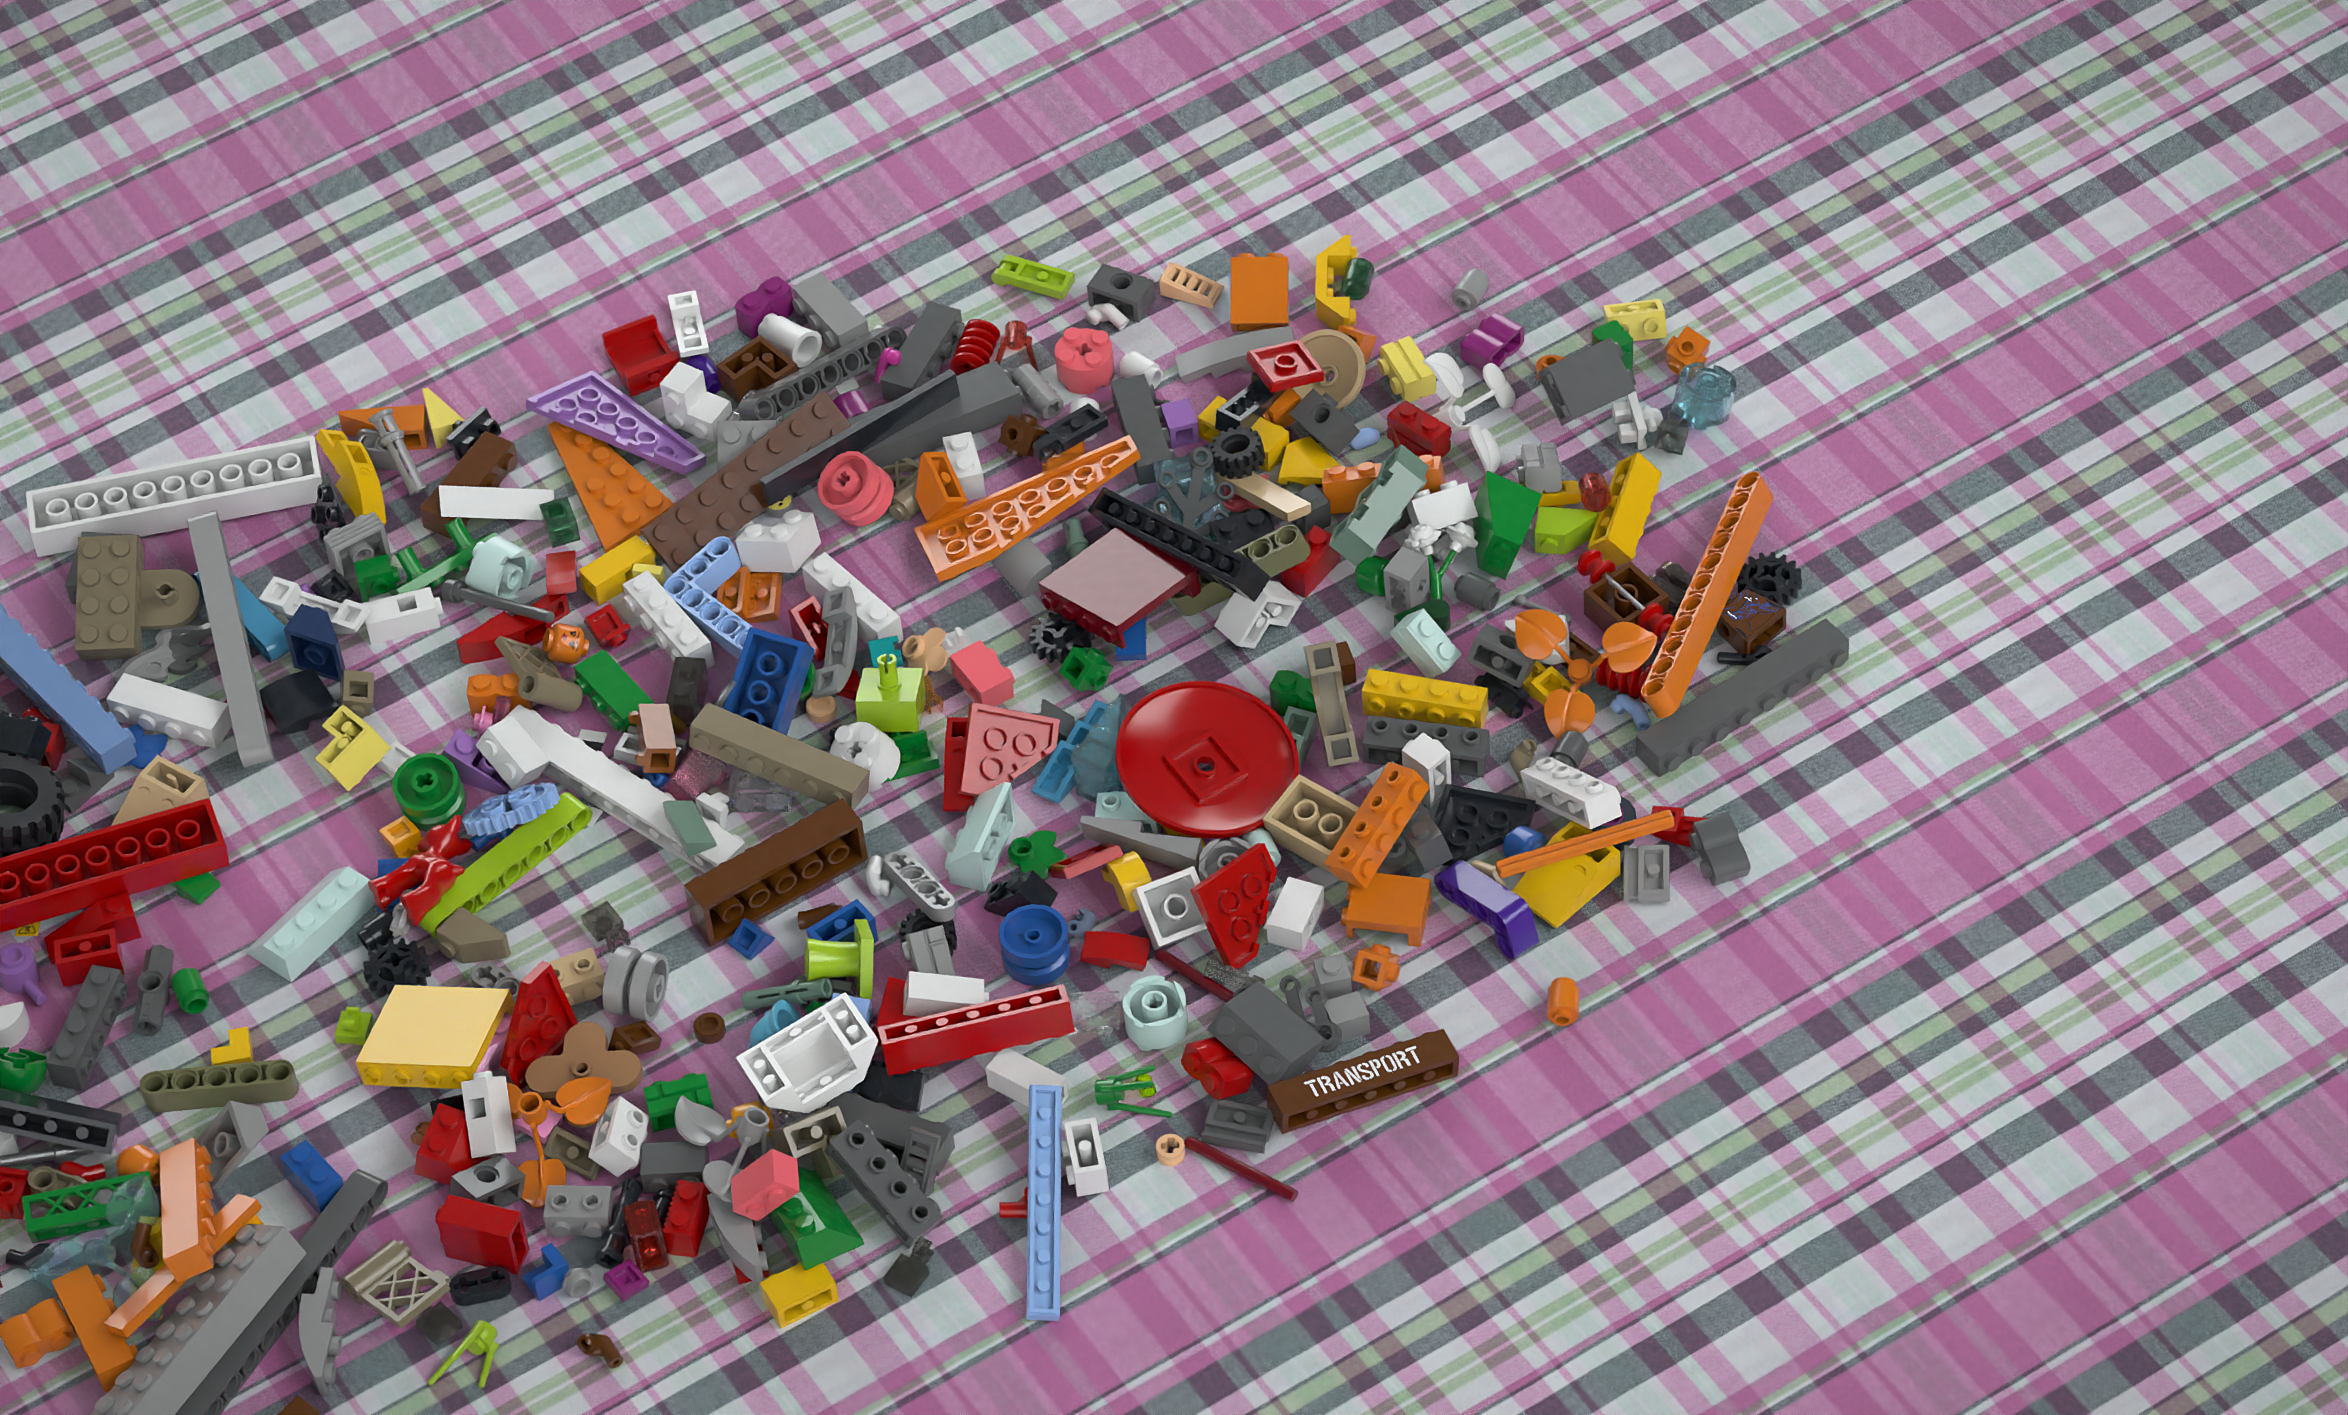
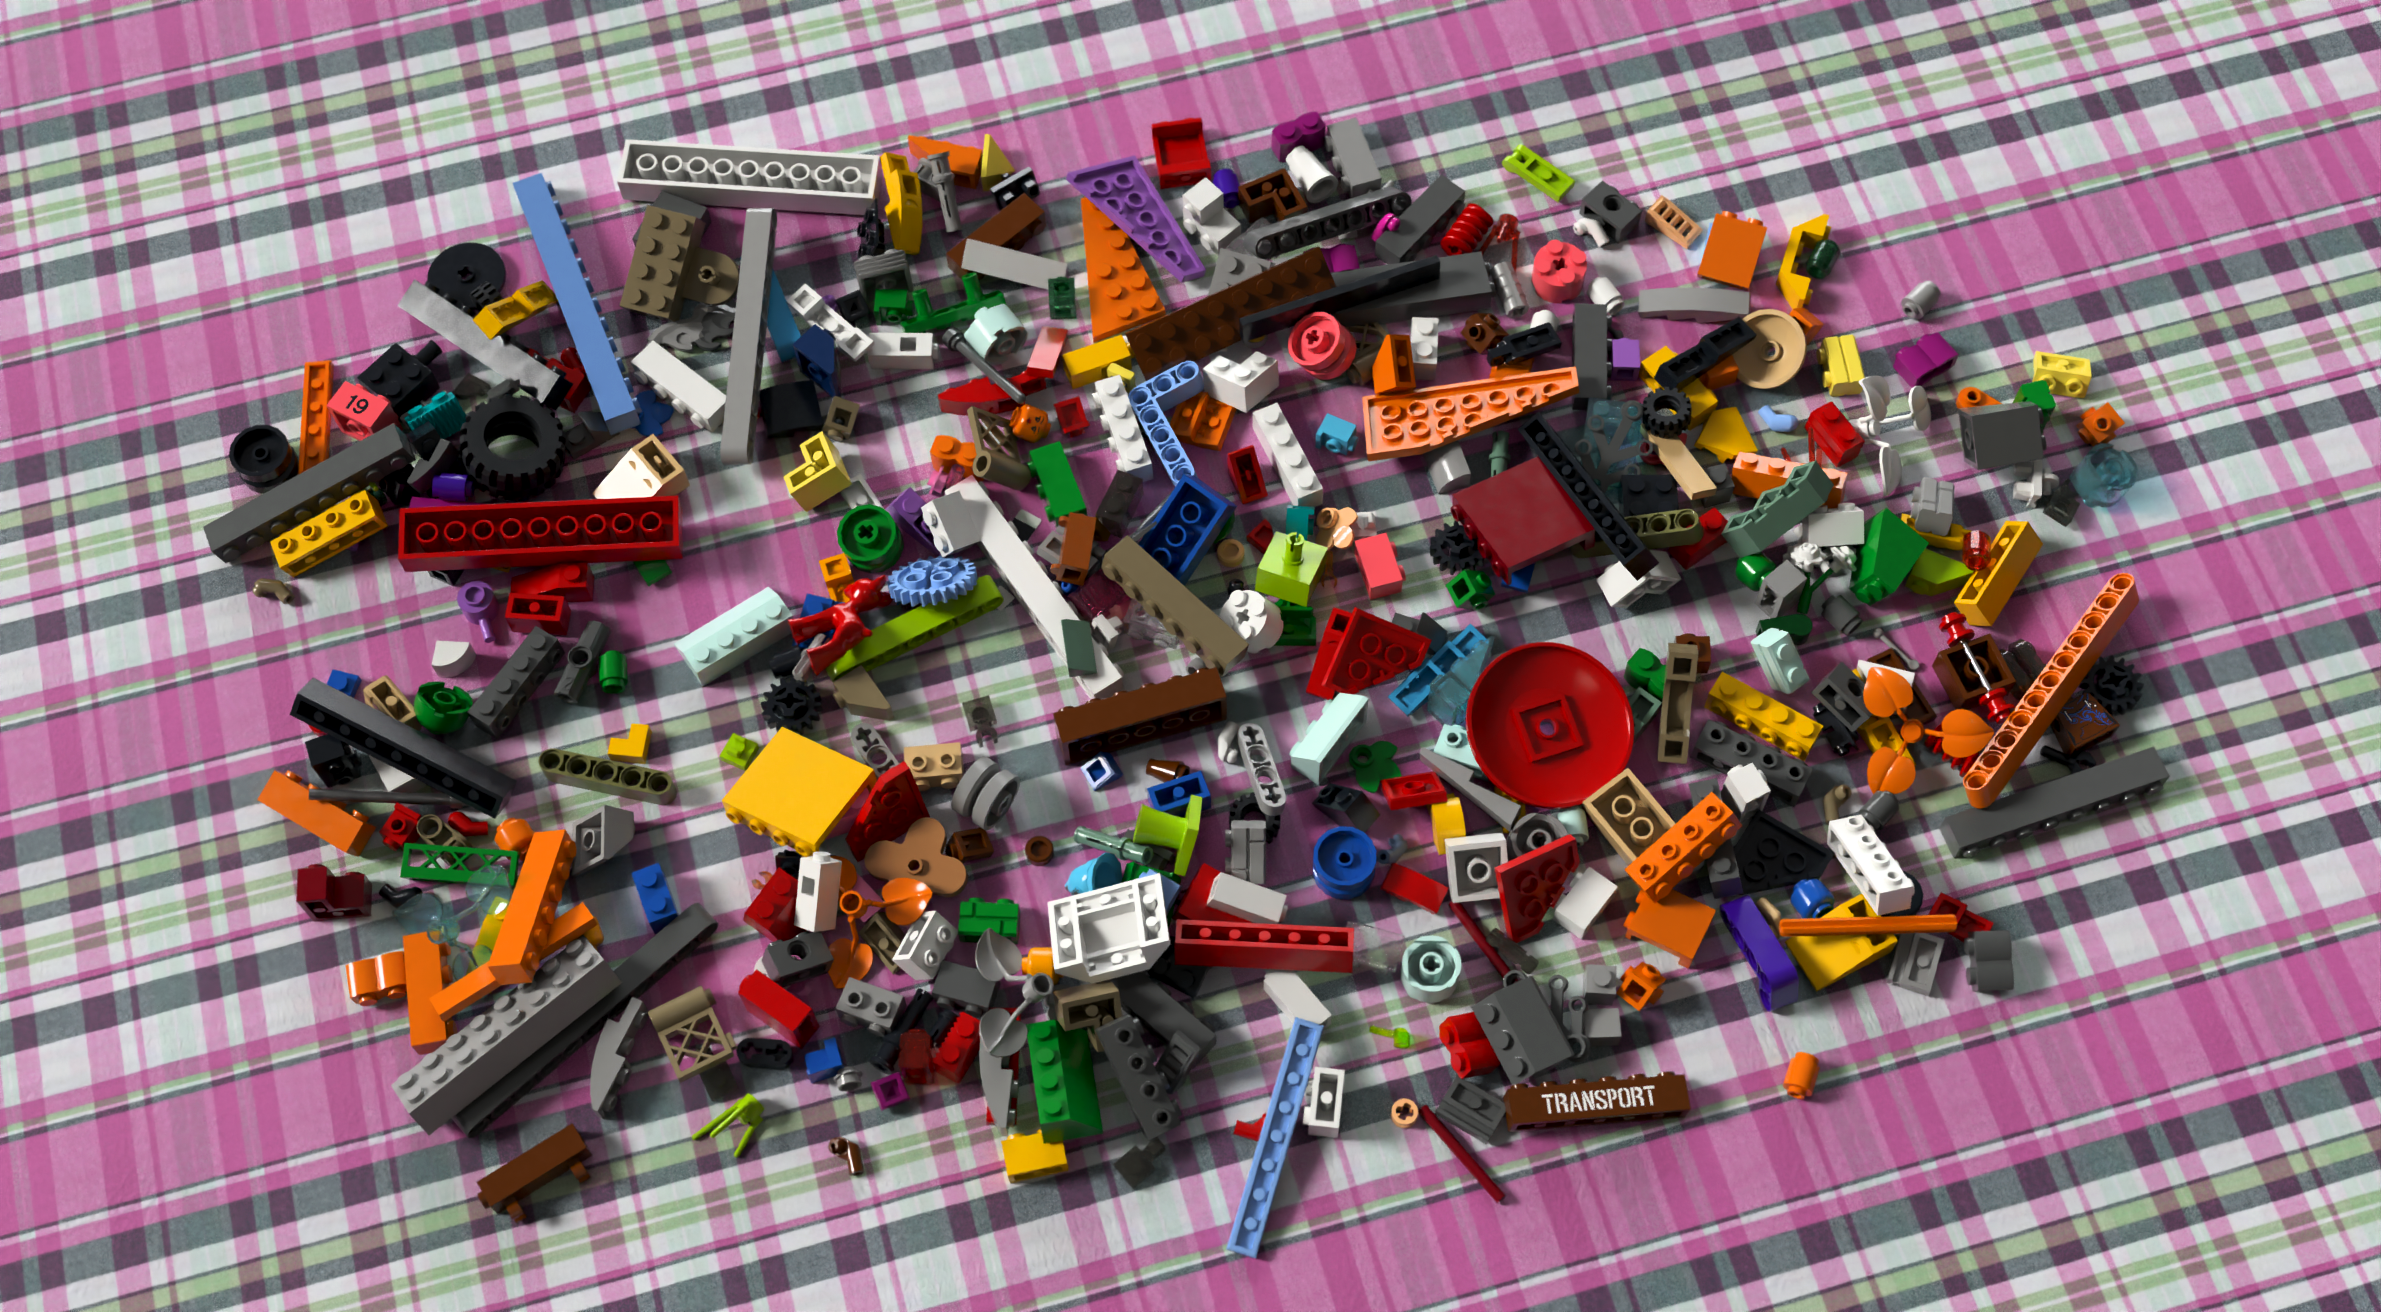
camera: 15 degrees right, 15 degrees up
(142, 1248) = (485, 929): reddish brown arm -> none
(688, 324) = (1229, 135): white slope -> none
(765, 1185) = (1029, 1056): coral brick -> none
(841, 644) = (1264, 499): light grey slope -> none
(898, 569) = (1336, 435): none -> medium azure brick
(1112, 1089) = (1369, 1040): green plant -> none
(1285, 366) = (1733, 337): red tile -> none
(1325, 422) = (1755, 414): dark grey brick -> none
(1635, 708) = (1952, 781): light blue arm -> none

